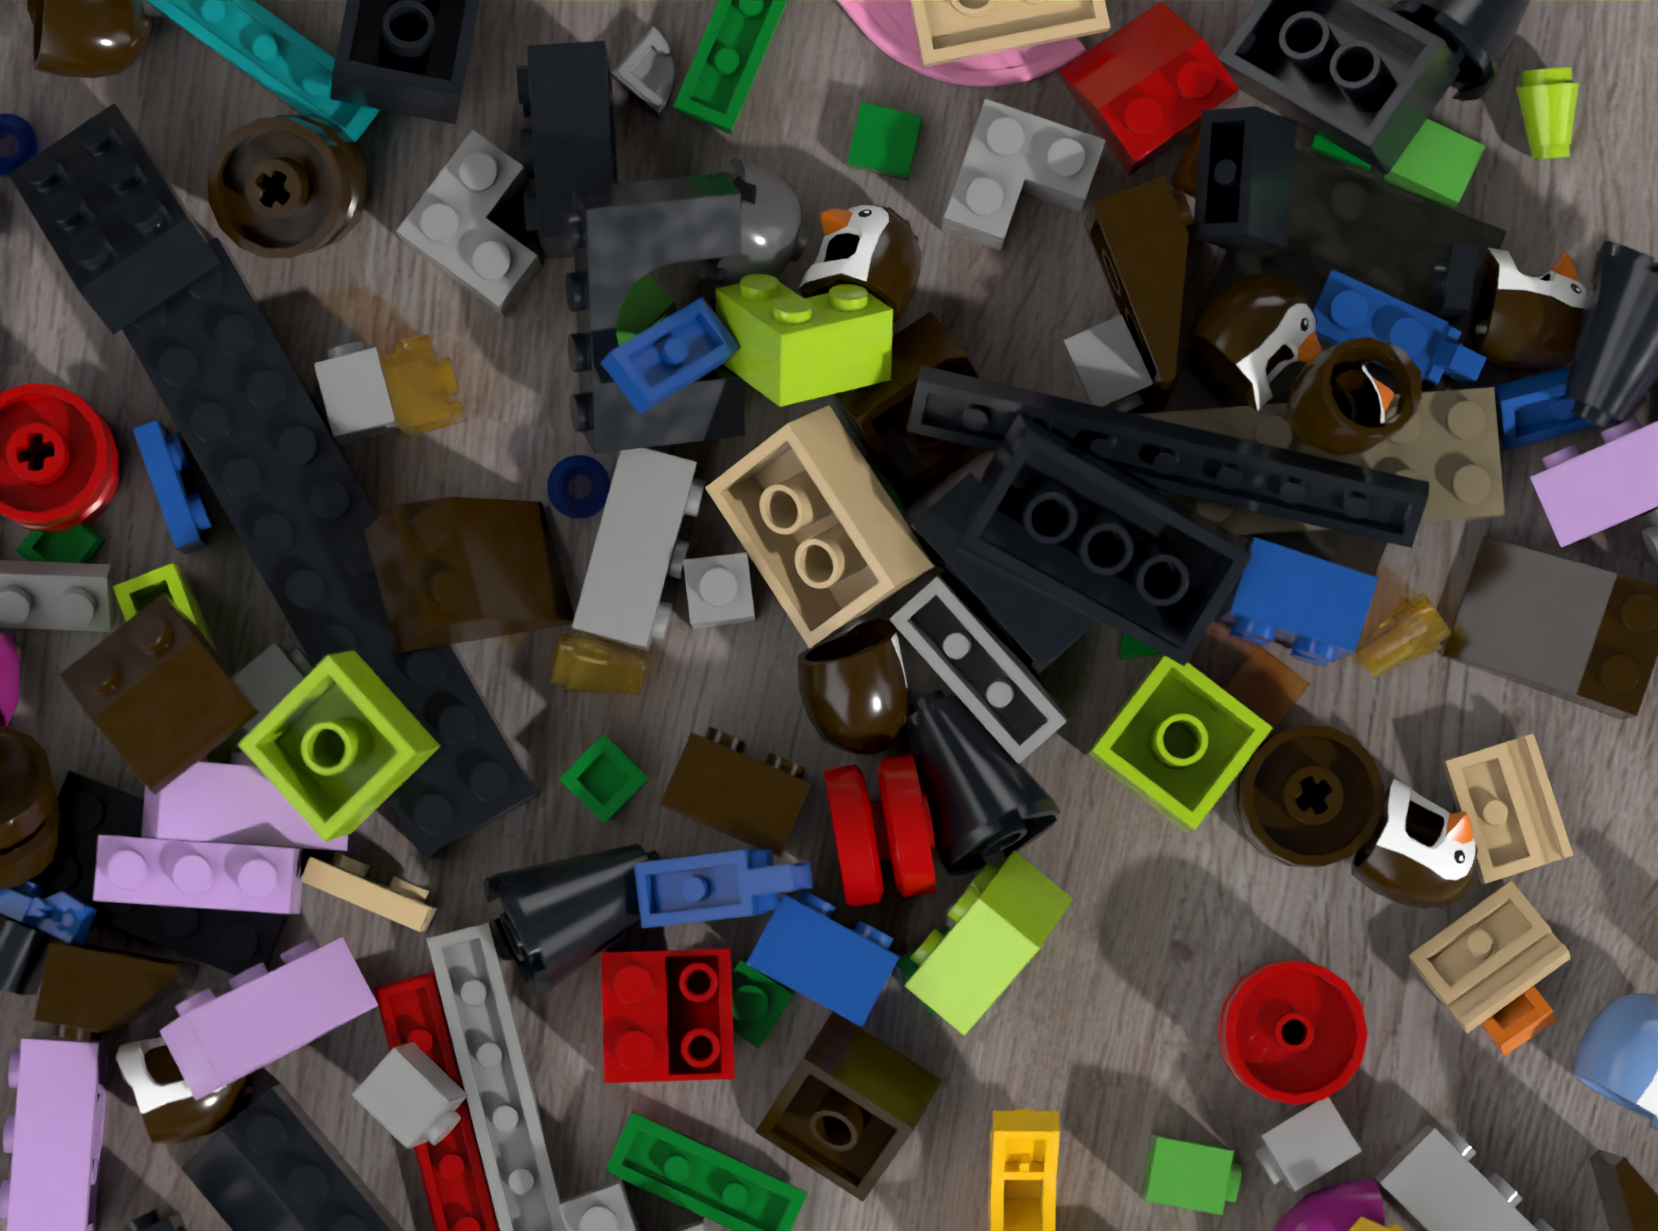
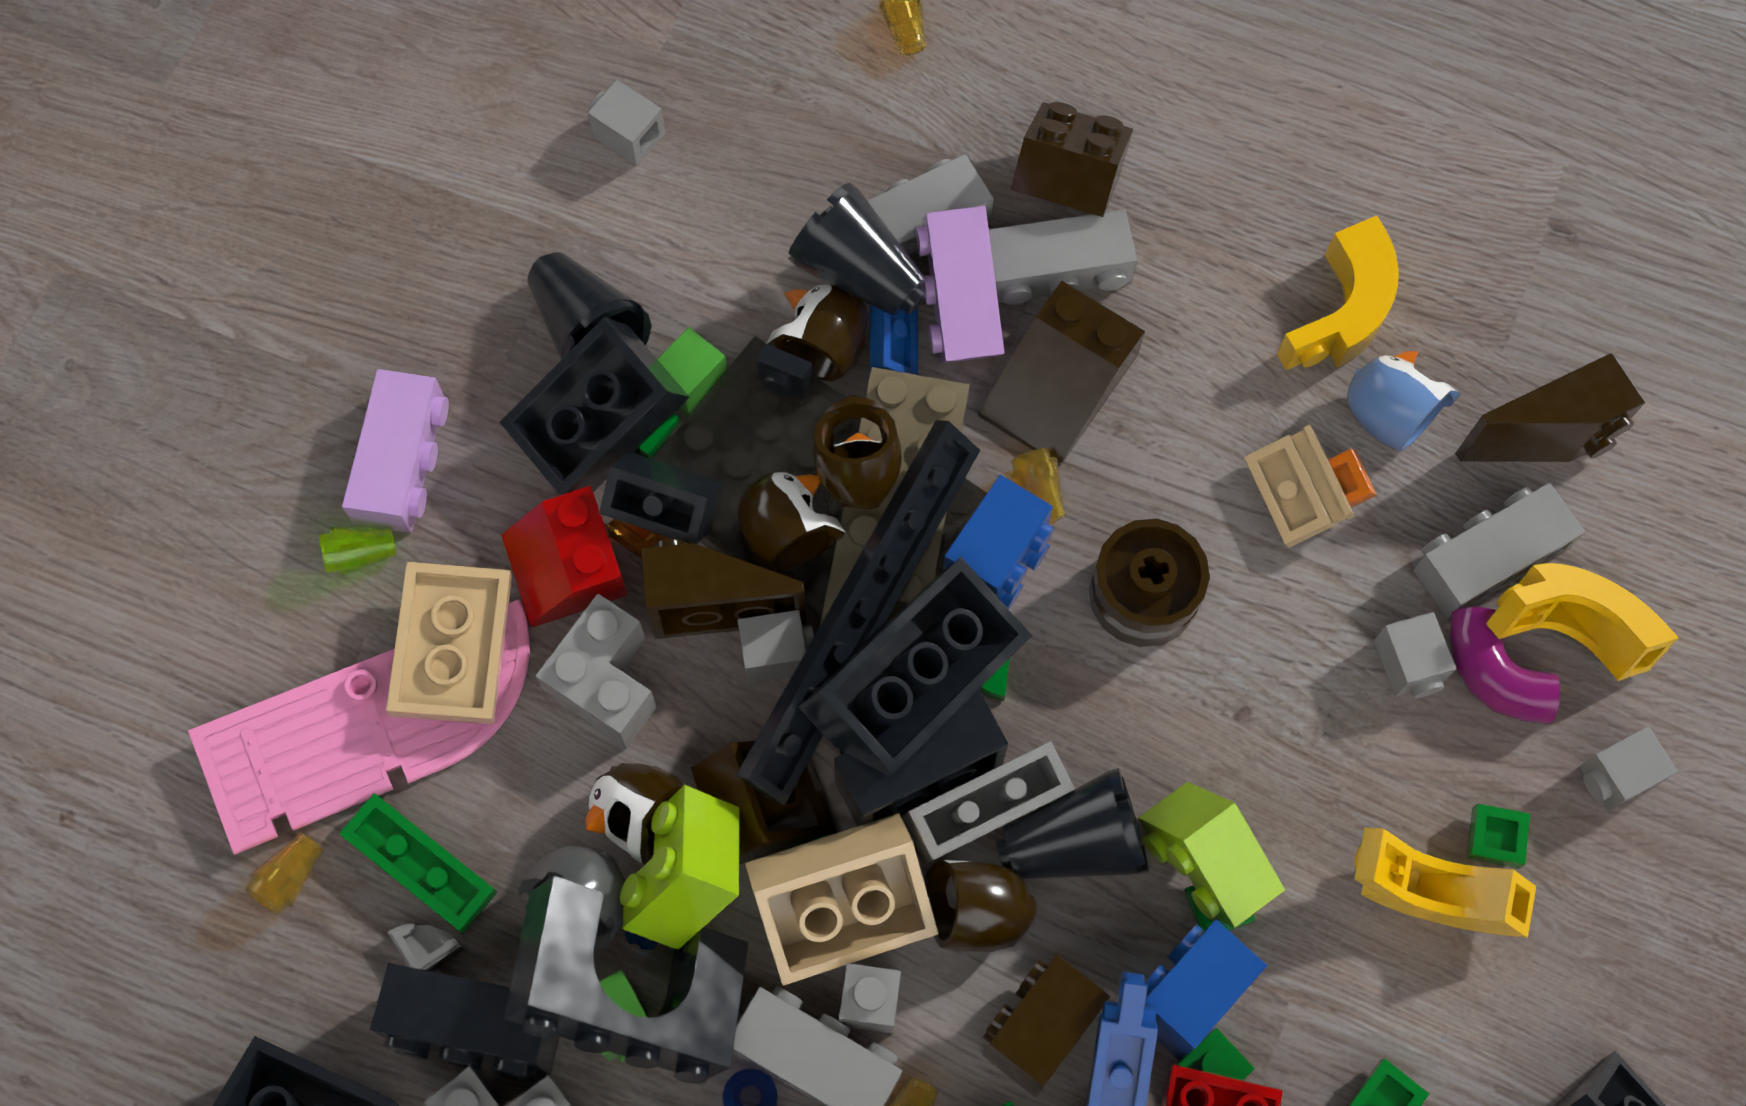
camera: 75 degrees left, 15 degrees down
(670, 355) = (669, 977): blue plate -> none
(848, 1106) = (1318, 1004): dark brown slope -> none
(881, 830) = (1102, 915): red wheel -> none
(884, 141) = (542, 772): green tile -> none
(1178, 742) = (1083, 666): lime brick -> none
(1190, 1174) = (1424, 750): bright green brick -> none
(1252, 1026) = (1329, 641): red wheel -> none
(1266, 686) = (1056, 596): clear orange plate -> none
(1356, 310) = (791, 442): blue hinge -> none
(1417, 852) = (1213, 509): piece -> none
(1509, 808) = (1188, 446): tan plate -> none
(1548, 110) = (674, 284): lime cone -> none

